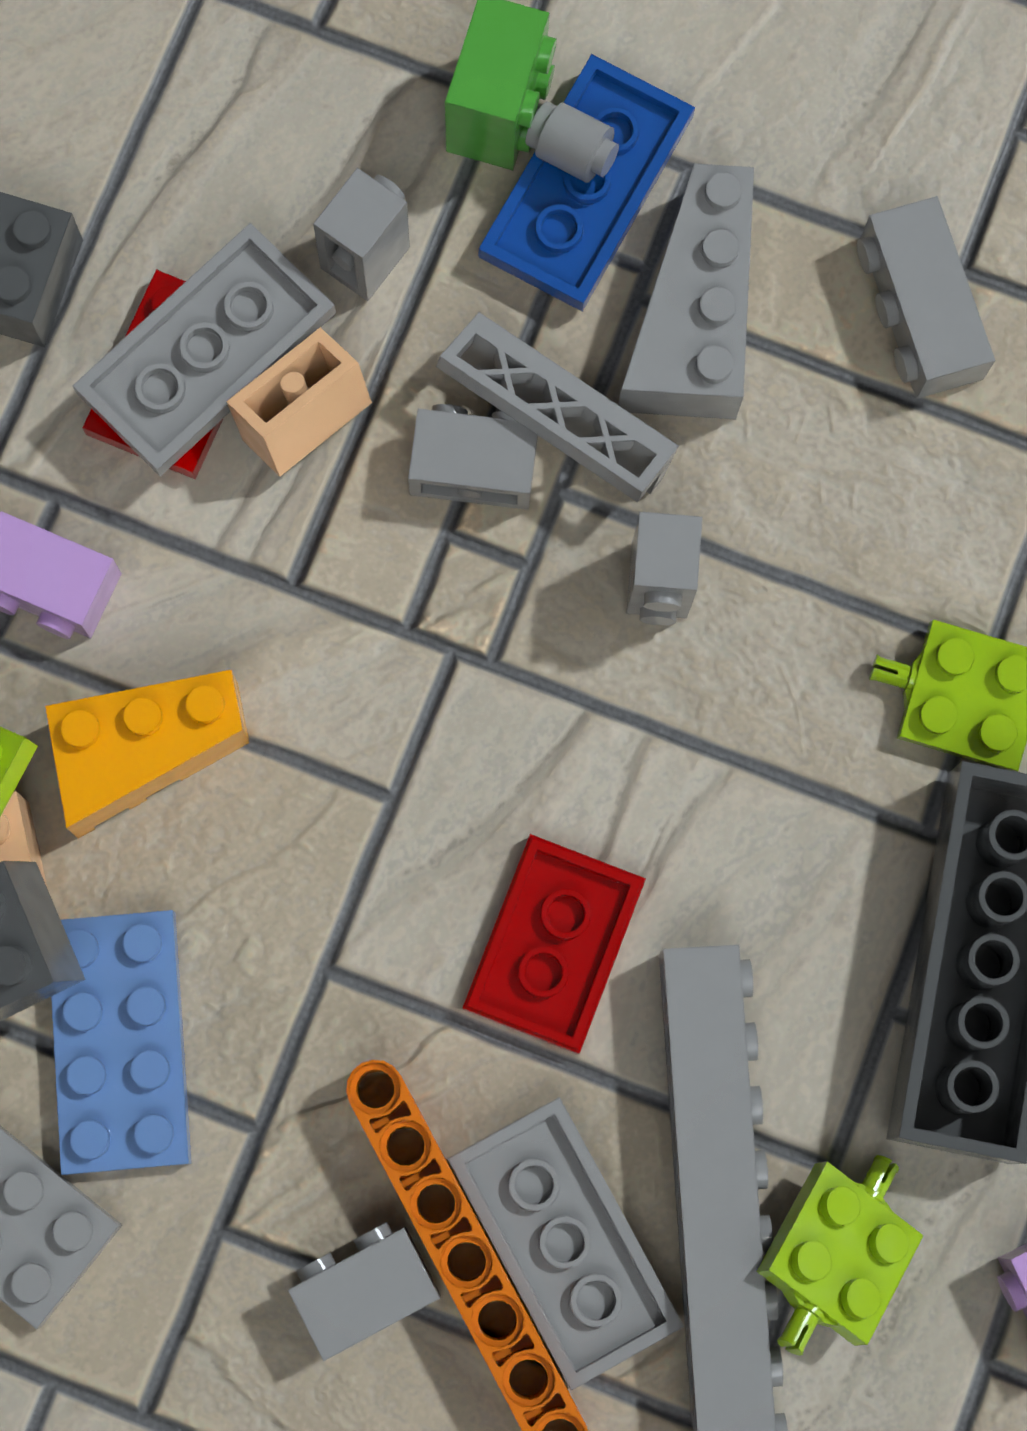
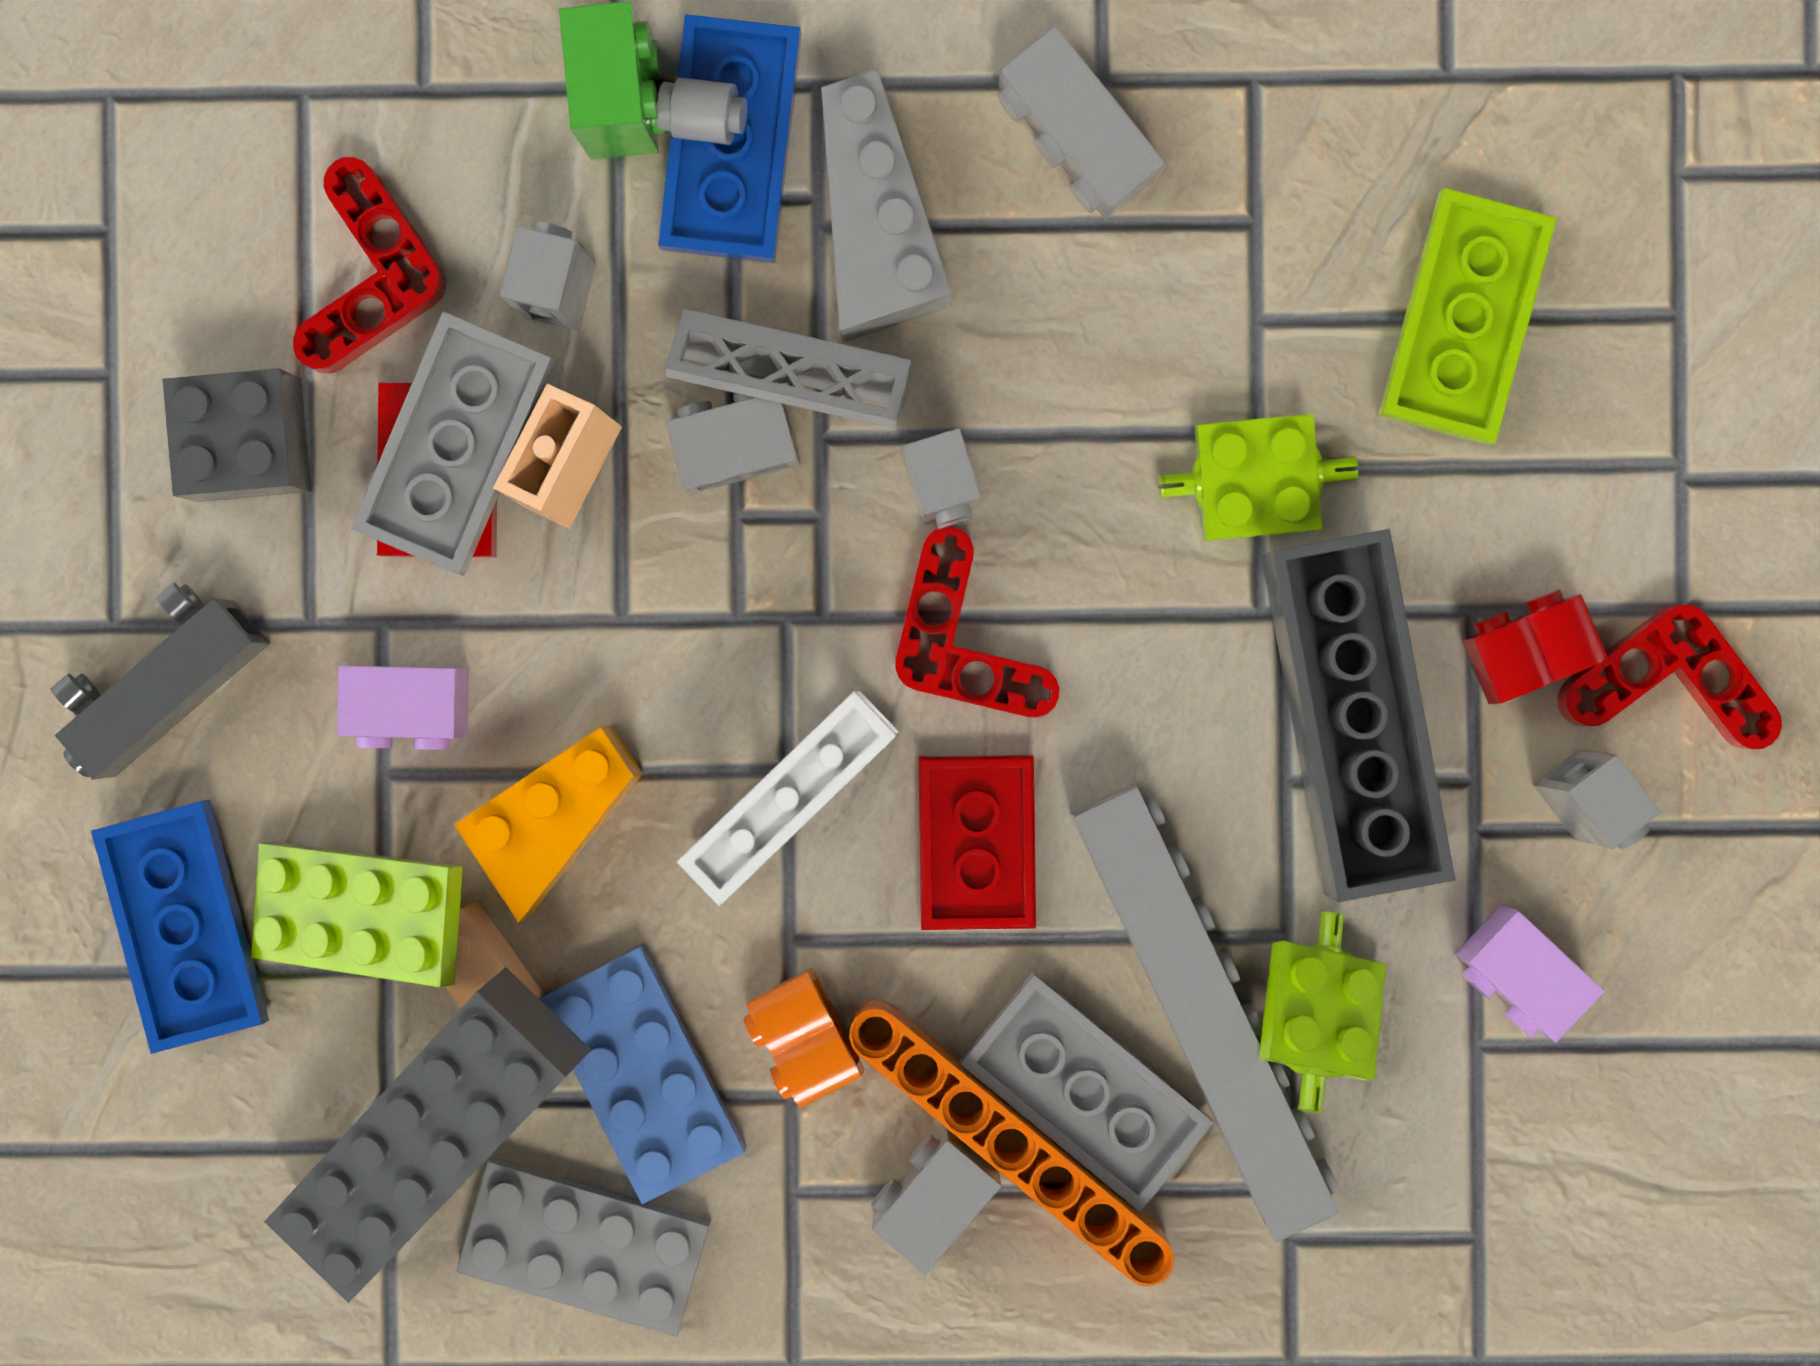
camera: 20 degrees left, 10 degrees up
(204, 186) = (385, 284): none -> red beam
(298, 1068) = (804, 1039): none -> orange brick
(392, 806) = (788, 797): none -> white fence
(605, 752) = (952, 658): none -> red beam

